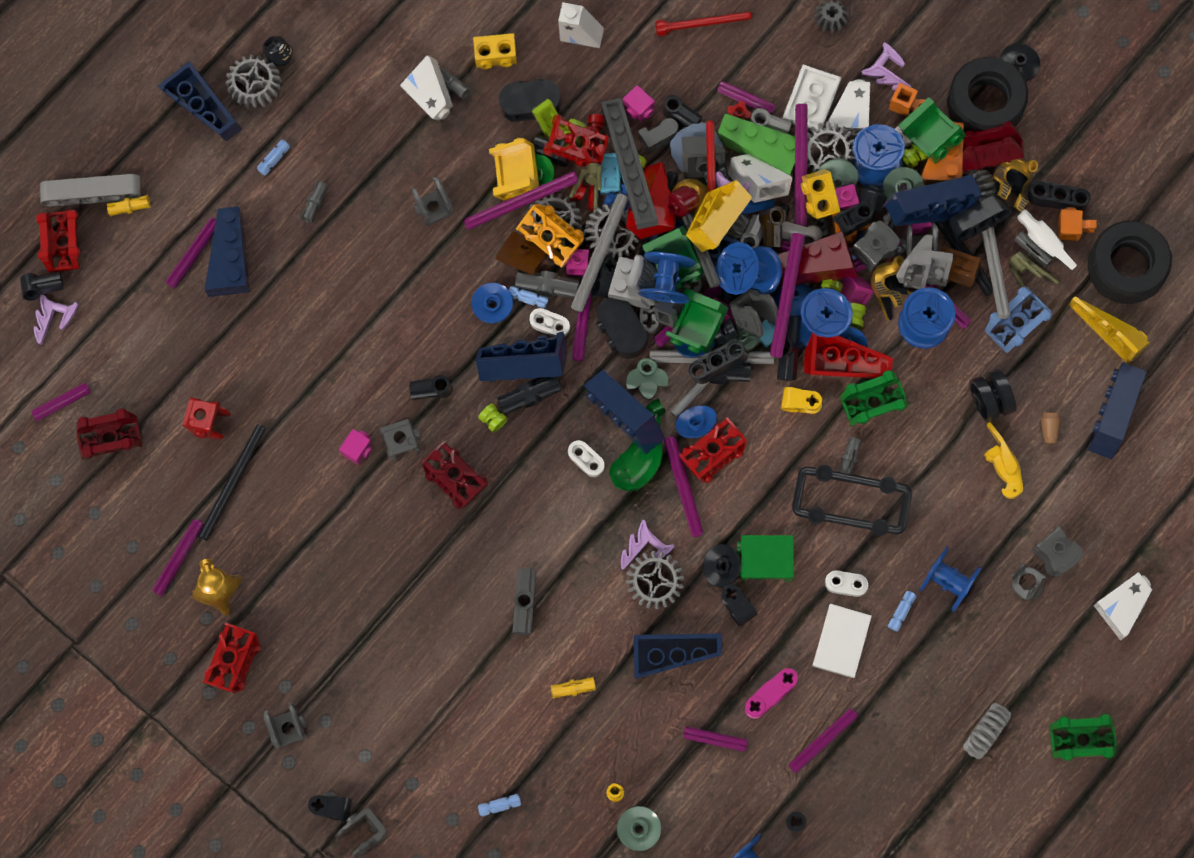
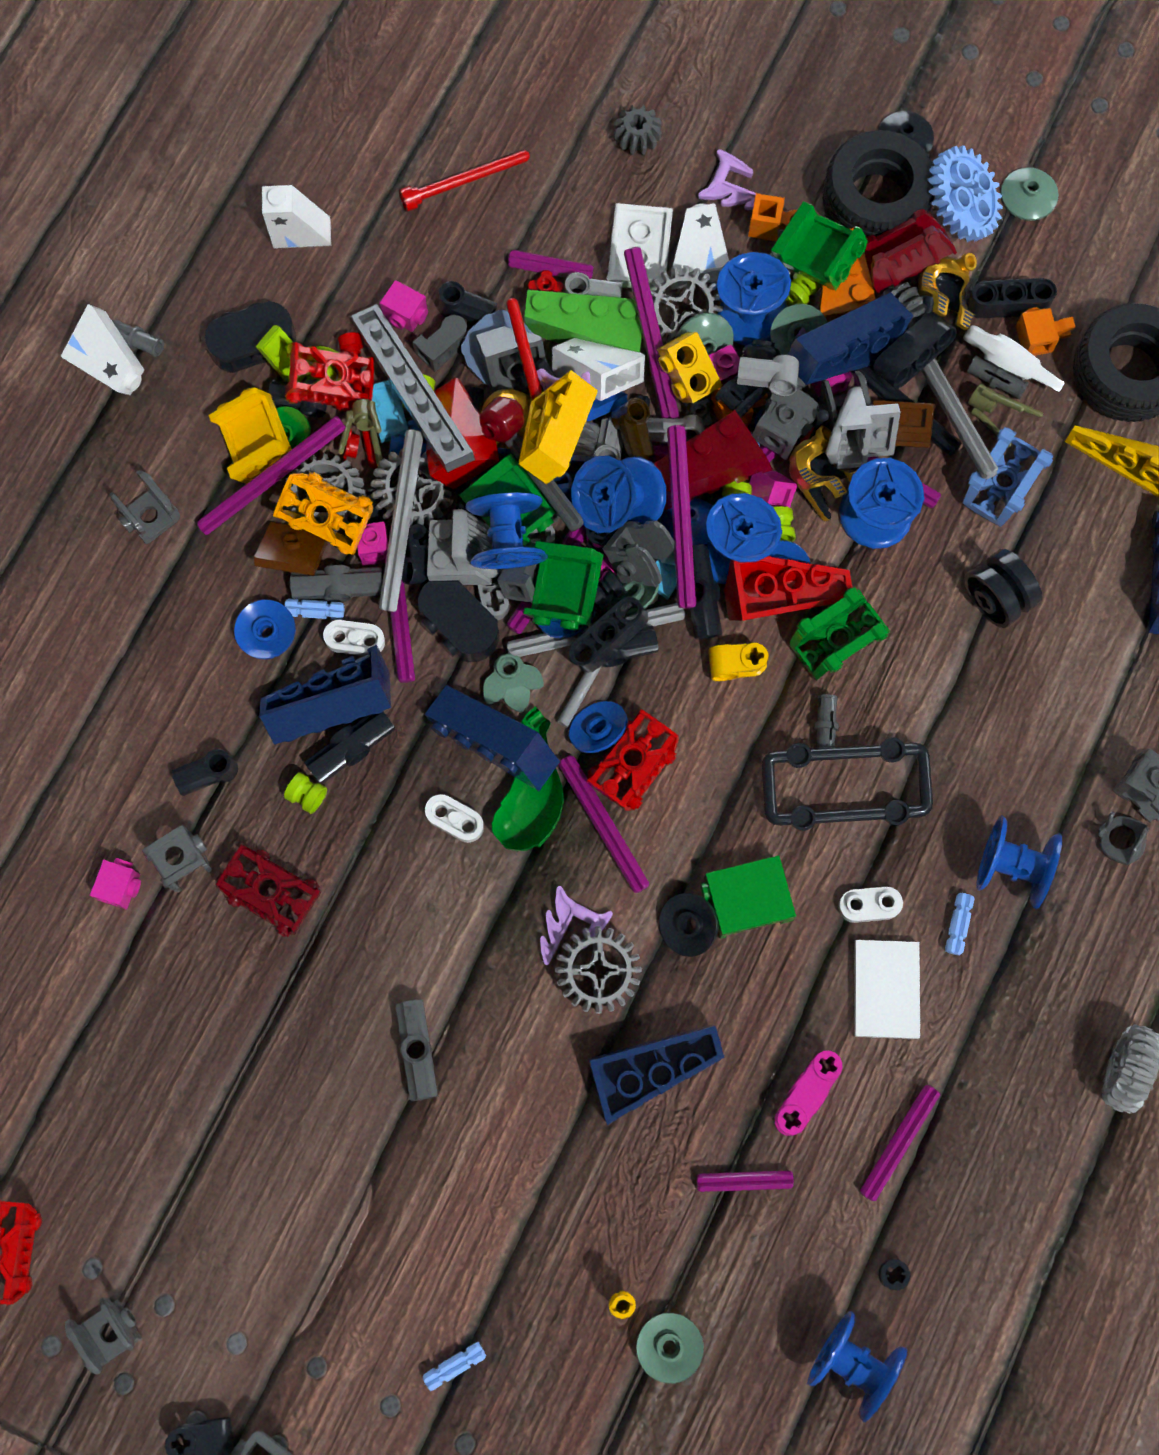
camera: 20 degrees left, 0 degrees up
(494, 45) = (183, 273): yellow brick -> none
(573, 687) = (519, 1159): yellow pin -> none
(740, 607) = (731, 980): black piece -> none
(875, 214) = (777, 374): none -> light grey piece
(1005, 465) = (1045, 681): yellow animal -> none
(1045, 116) = (965, 193): none -> light blue gear
(1050, 426) = (1091, 613): medium nougat cone -> none
(1092, 132) = (1025, 203): none -> sand green dish

